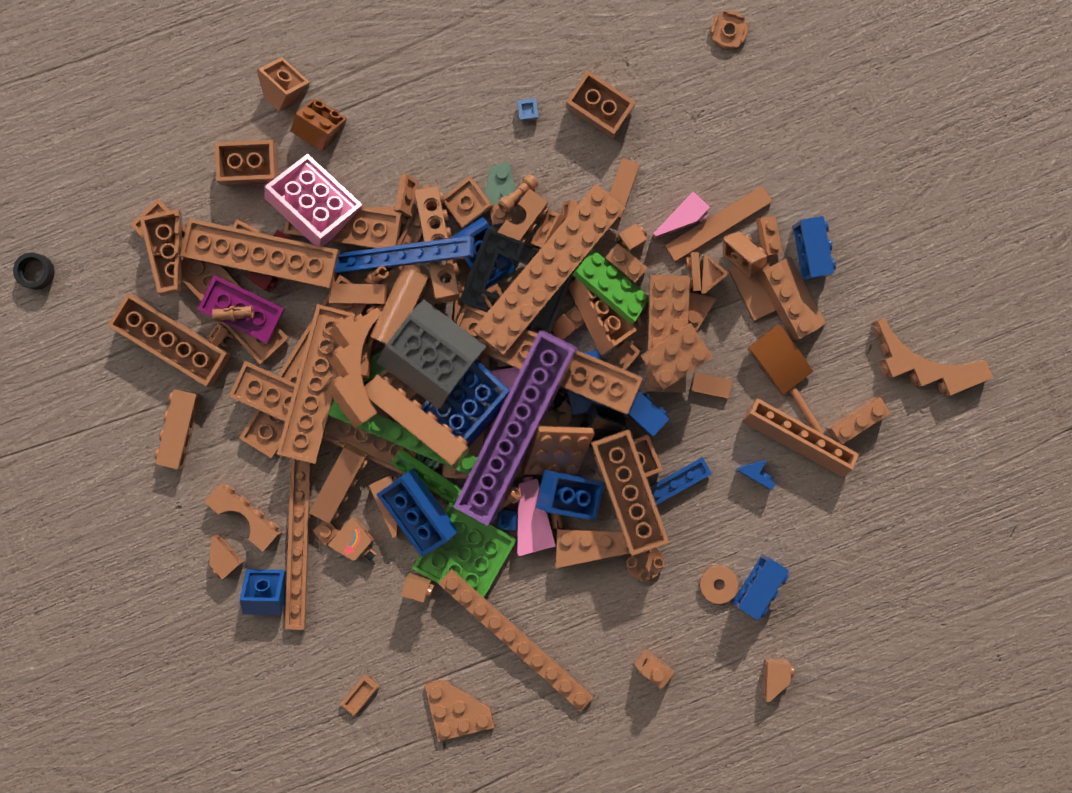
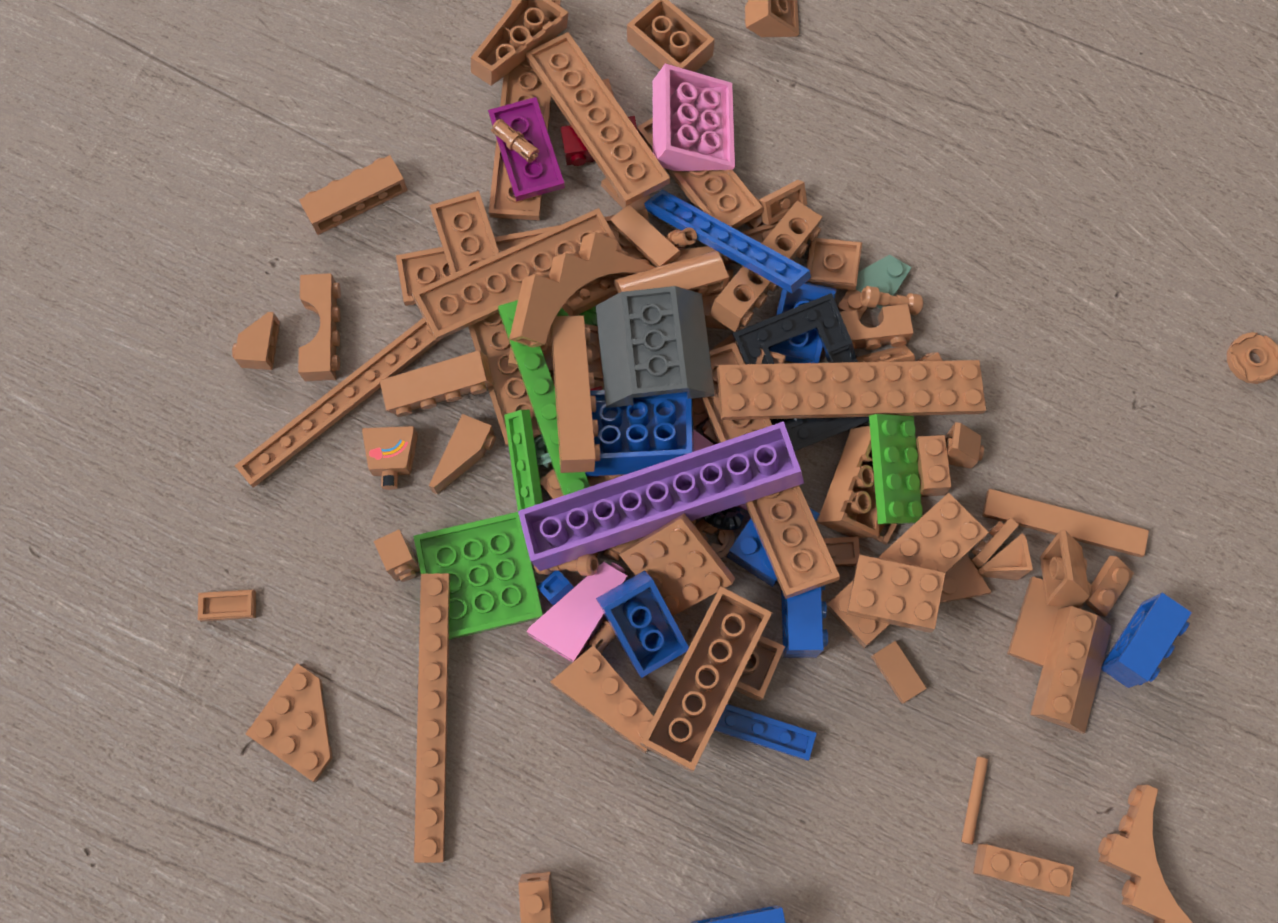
camera: 50 degrees right, 15 degrees down
(169, 340) = (435, 115): nougat brick -> none
(218, 334) = (480, 154): nougat tile -> none
(263, 592) = (254, 411): blue slope -> none
(317, 124) = (768, 70): dark orange slope -> none
(326, 531) = (375, 417): nougat plate -> none
(417, 512) = (478, 484): blue slope -> none
(527, 109) = (978, 240): medium blue plate -> none
(567, 323) = (817, 465): nougat slope -> none
(600, 104) = (1055, 299): nougat brick -> none
(603, 422) = (753, 584): black torso -> none
(623, 181) = (1007, 392): nougat tile -> none
(645, 565) = (644, 778): nougat dish -> none
(685, 215) = (1038, 480): bright pink slope -> none
(721, 595) = (714, 886): nougat tile -> none
(753, 471) = (852, 803): blue slope -> none
(780, 359) = (999, 718): dark orange slope -> none
(800, 438) = (942, 822): nougat brick -> none

